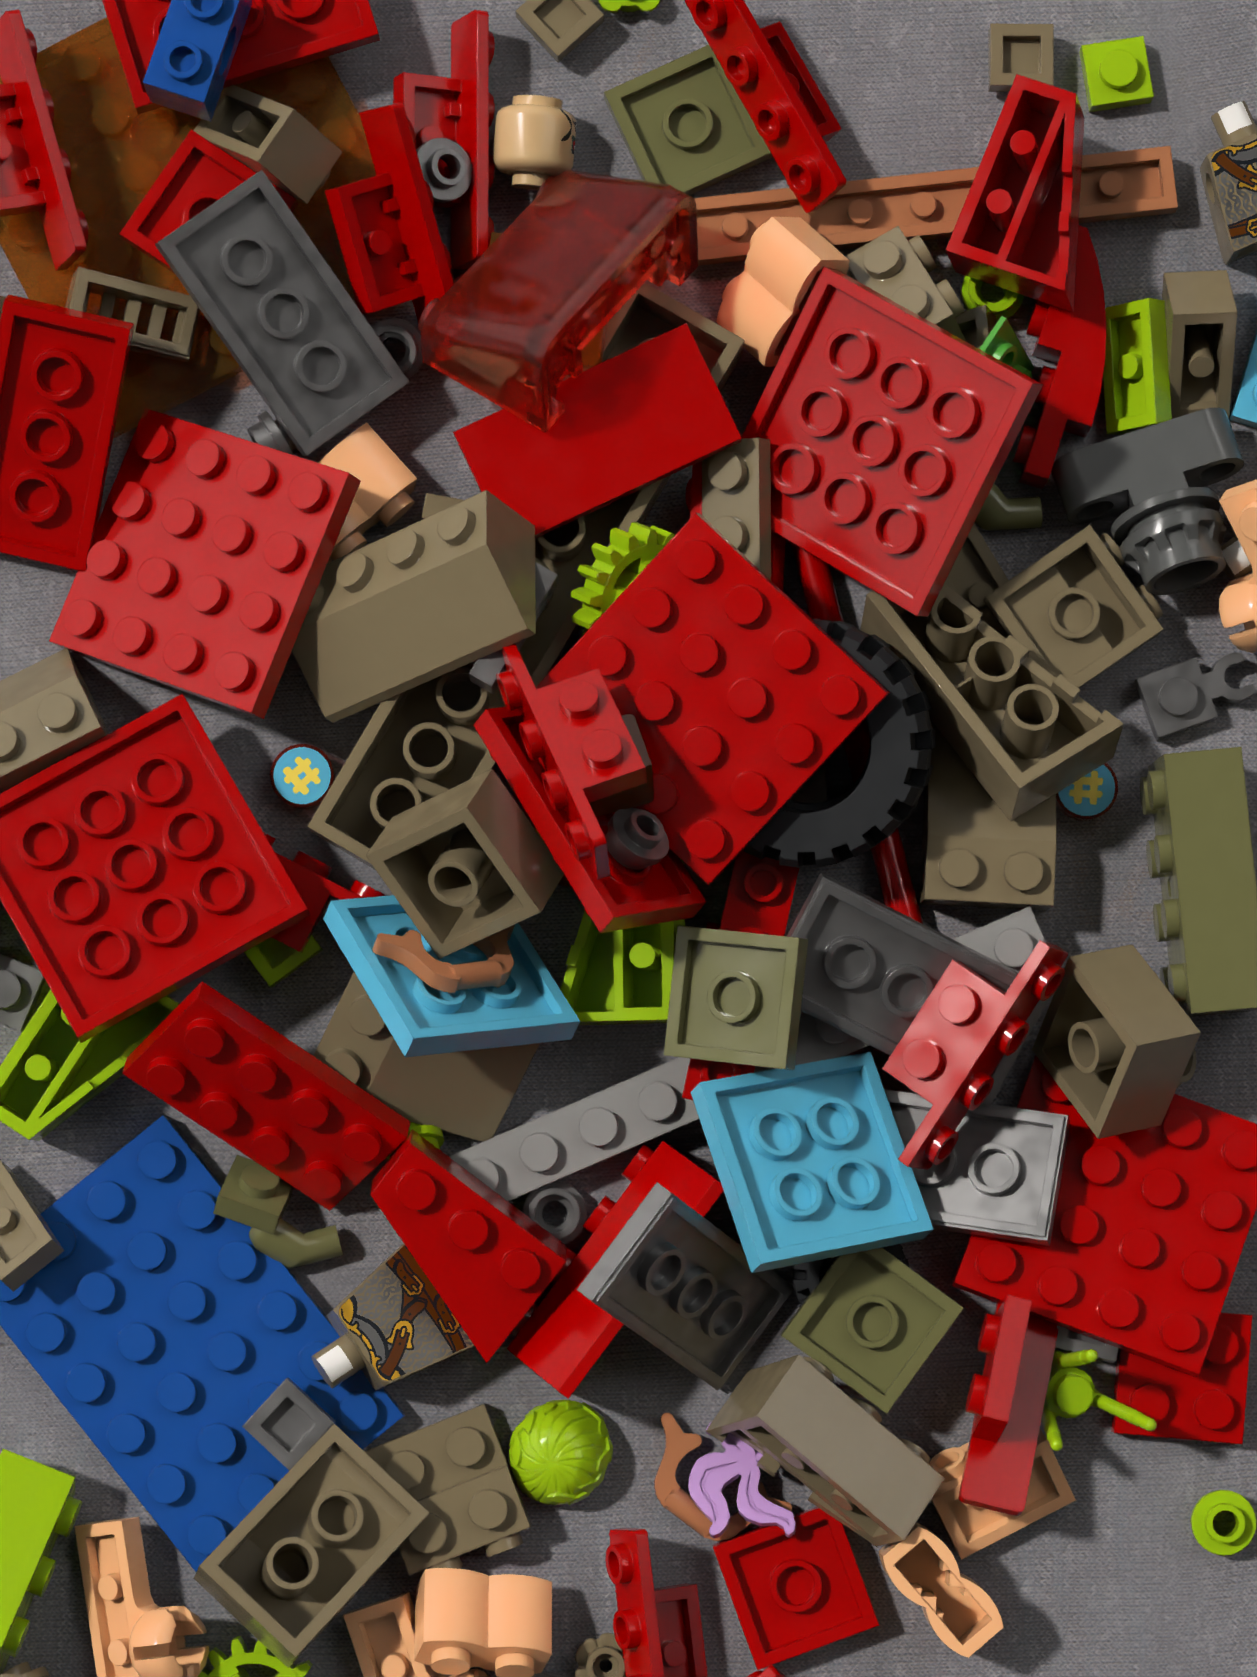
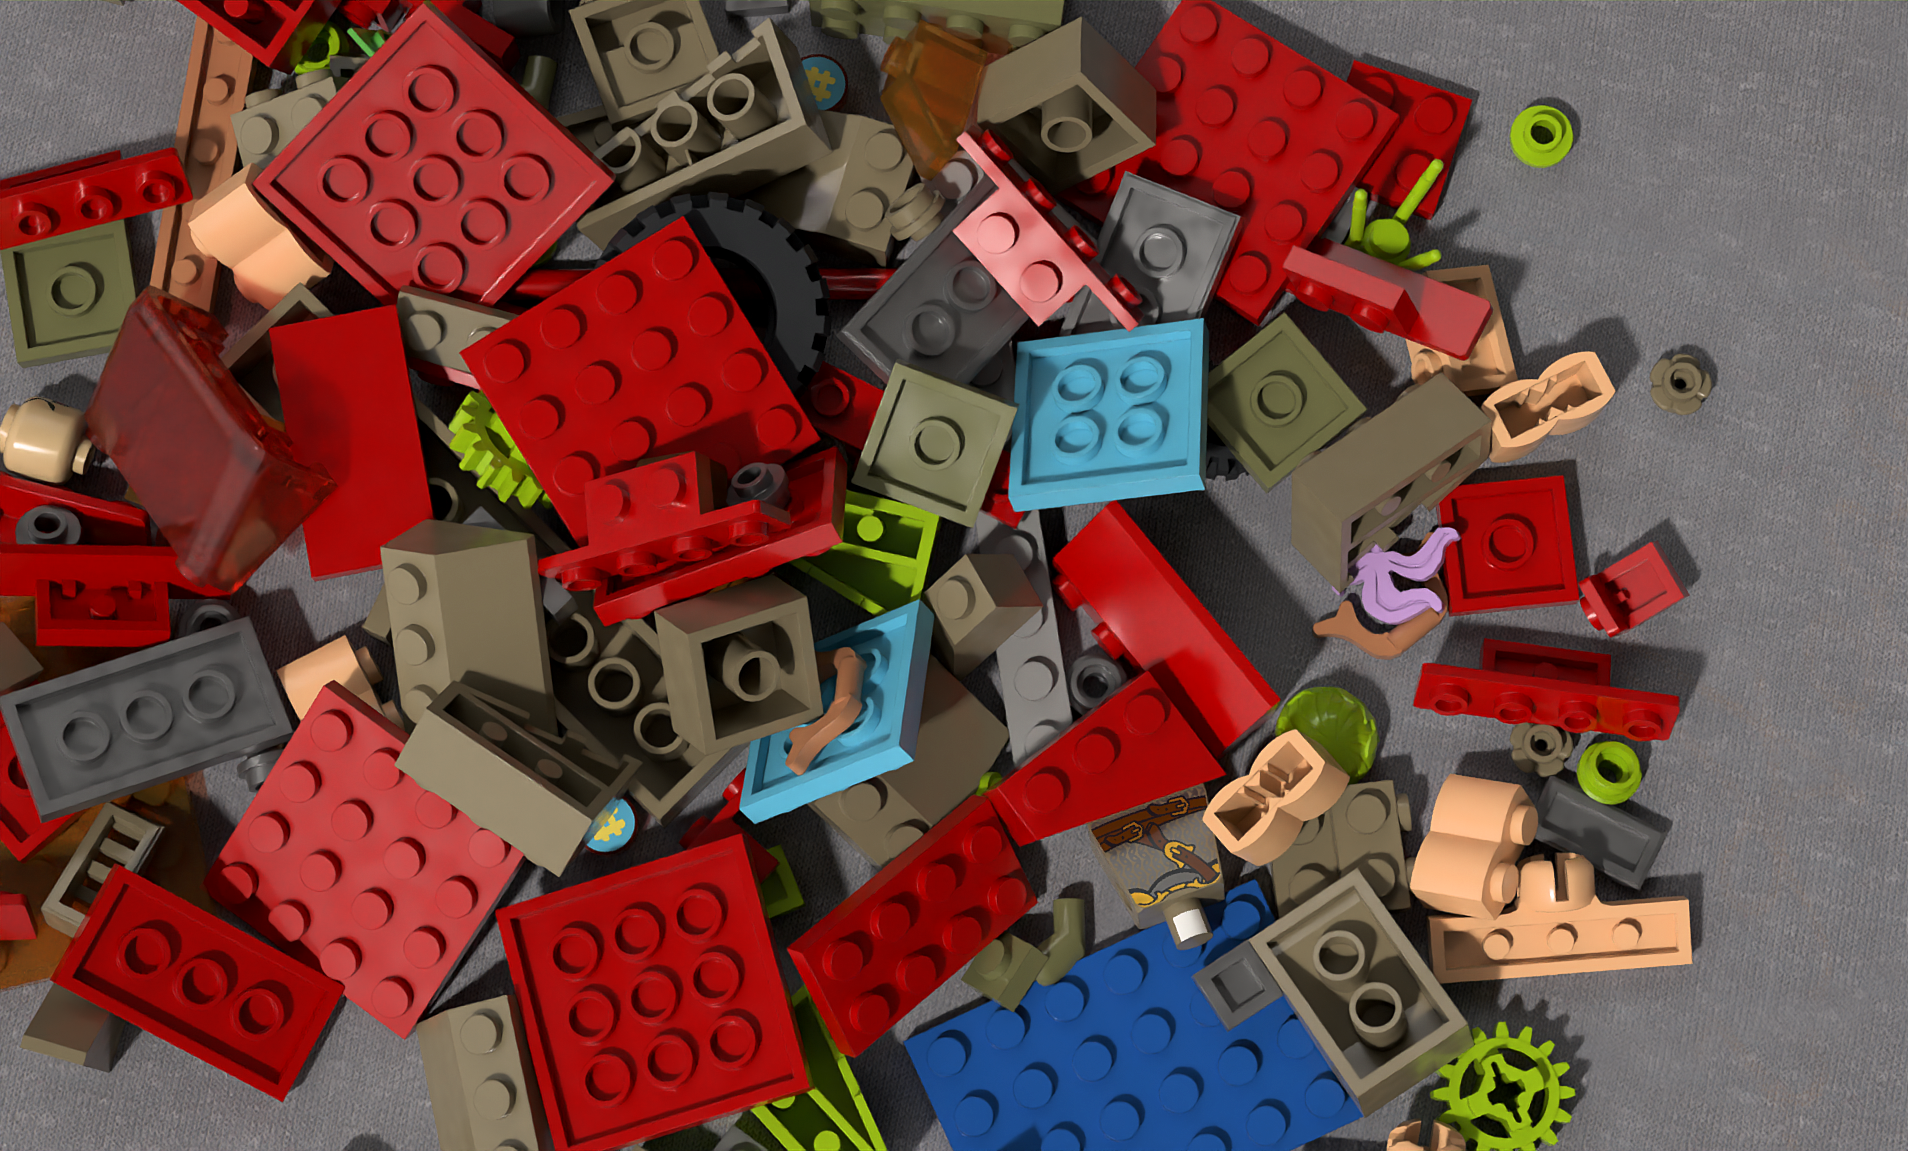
camera: 75 degrees left, 5 degrees down
(303, 679) = (513, 777): none -> dark tan wedge
(467, 1414) = (1265, 810): none -> light nougat brick
(593, 1082) = (978, 609): none -> dark tan slope
(685, 1287) = (1200, 563): flat silver tile -> none
(967, 919) = (915, 213): none -> dark tan plate
(1093, 902) = (930, 93): none -> clear orange slope

